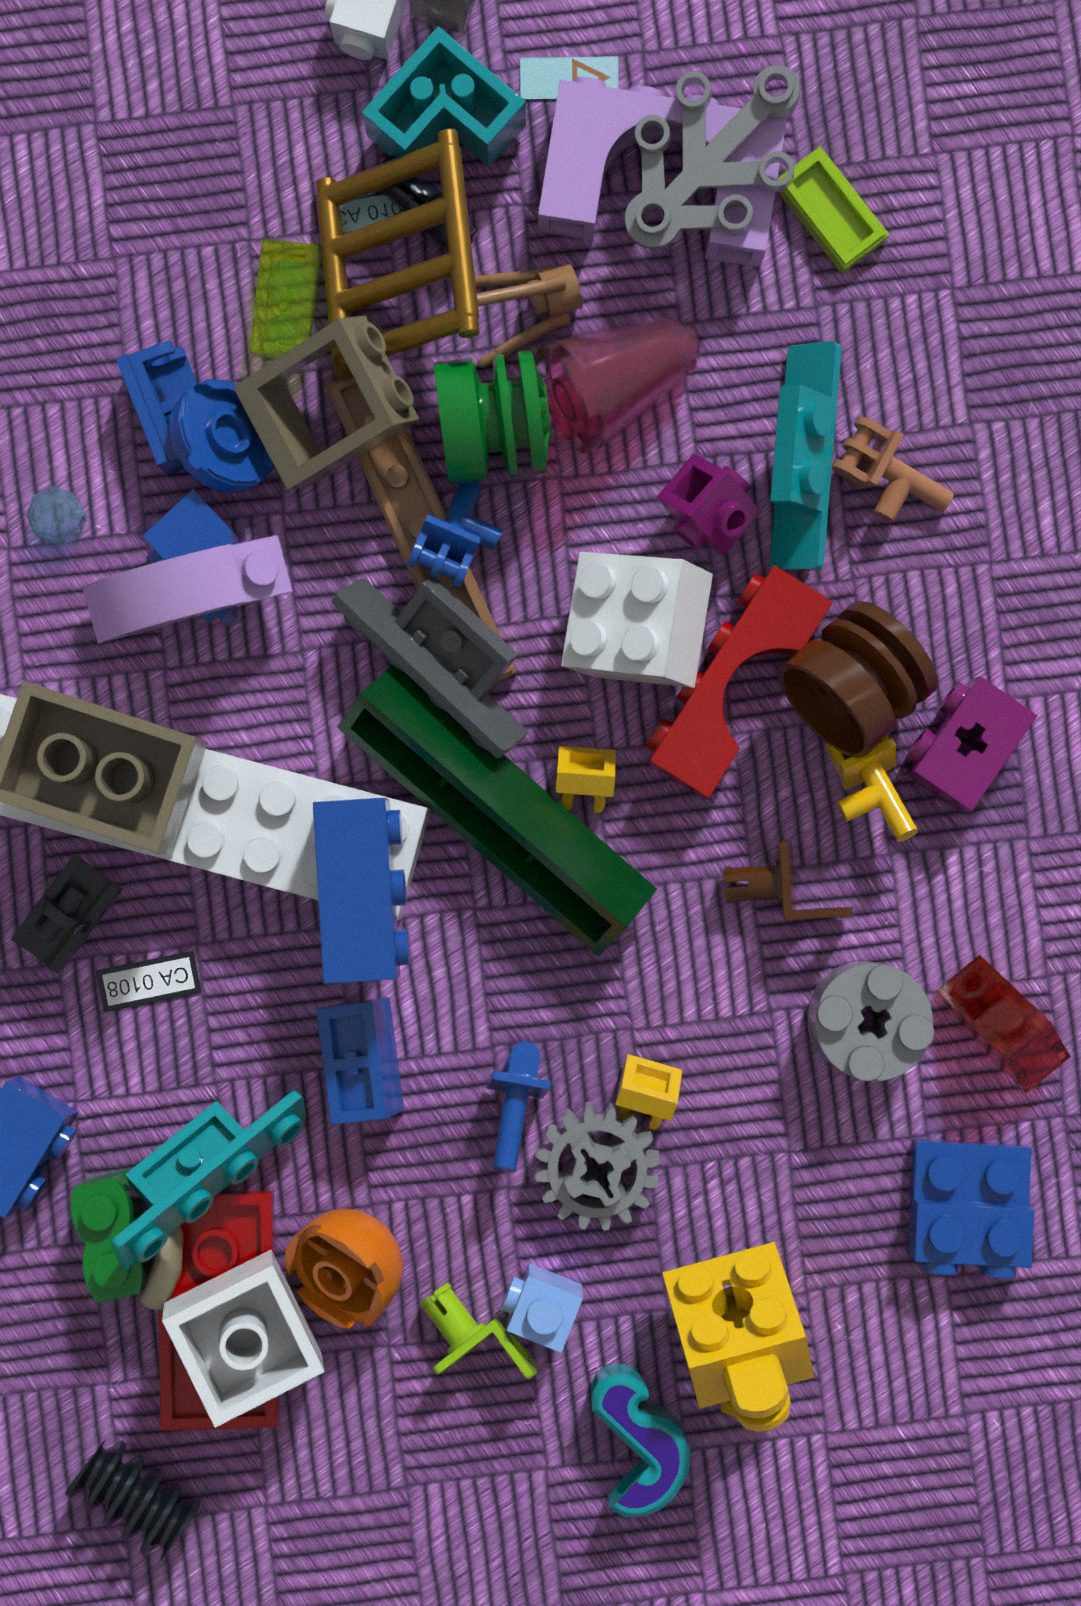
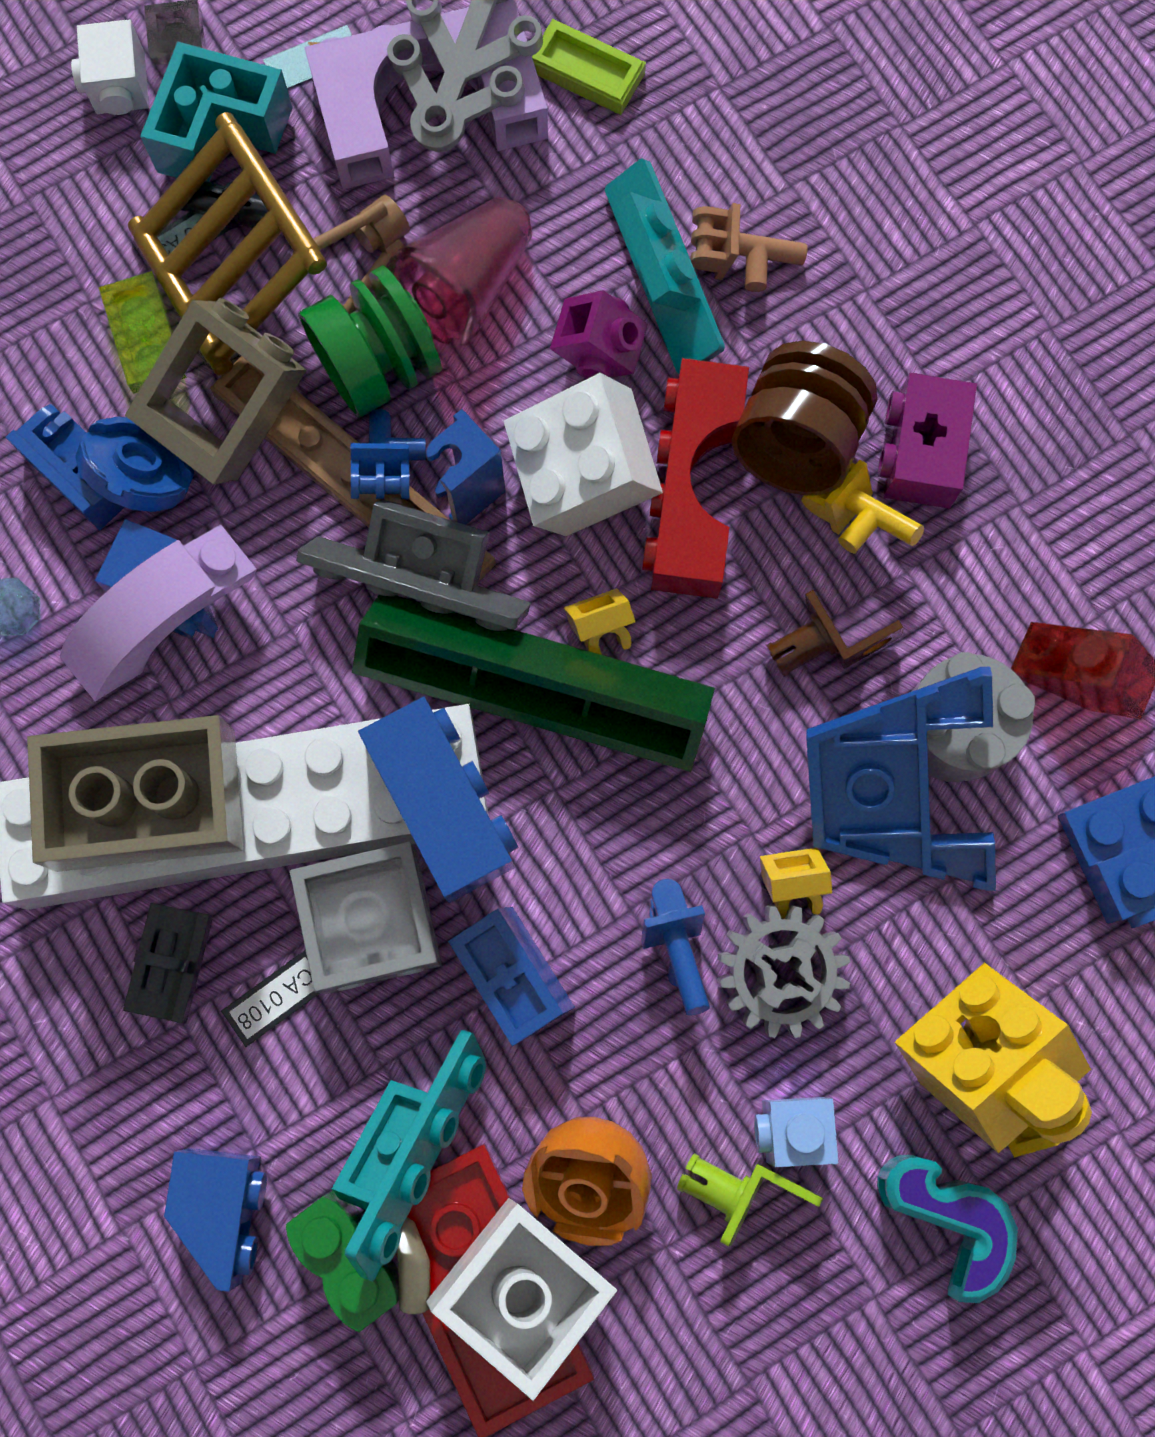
camera: 25 degrees left, 10 degrees down
(253, 956) = (365, 918): none -> piece
(527, 583) = (477, 471): none -> blue hinge
(756, 1040) = (875, 783): none -> blue wing

